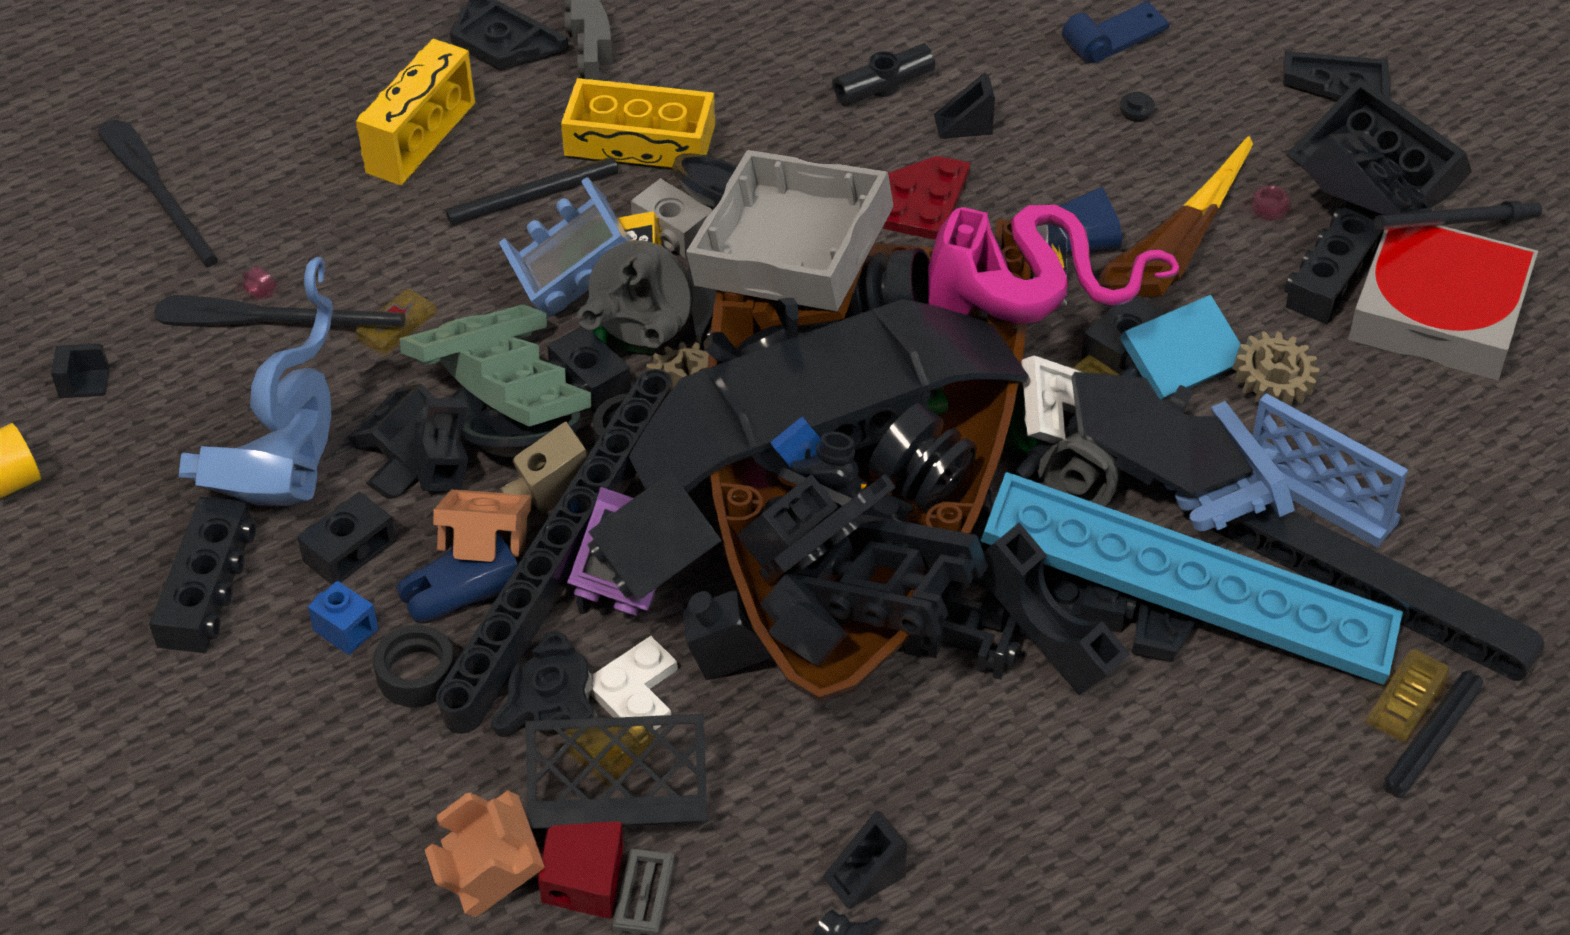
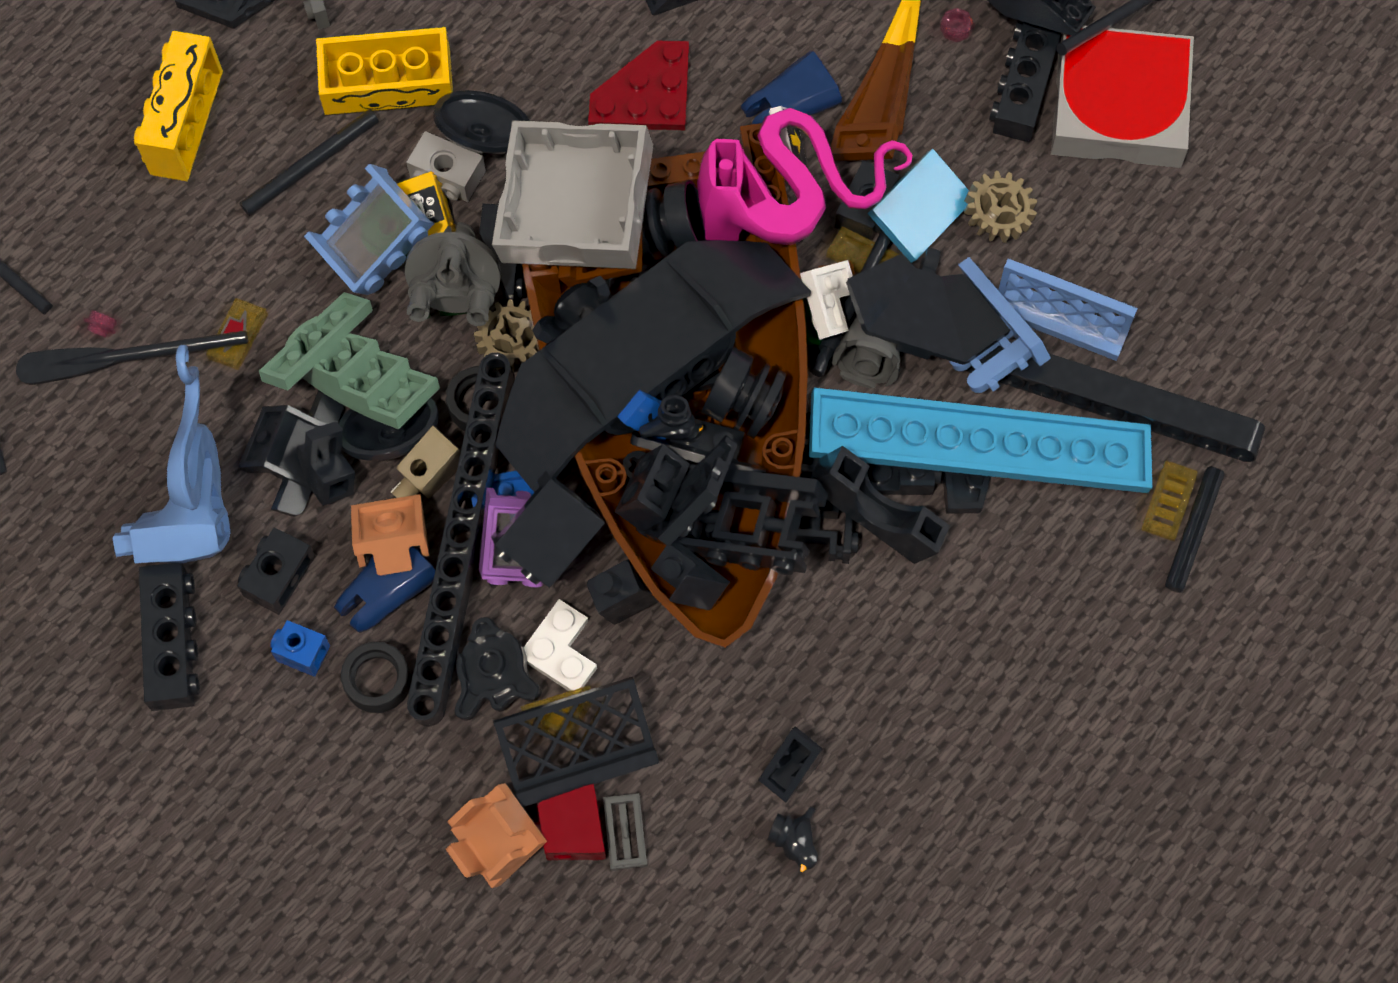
camera: 15 degrees left, 20 degrees up
(590, 365) = (409, 335): black brick -> none

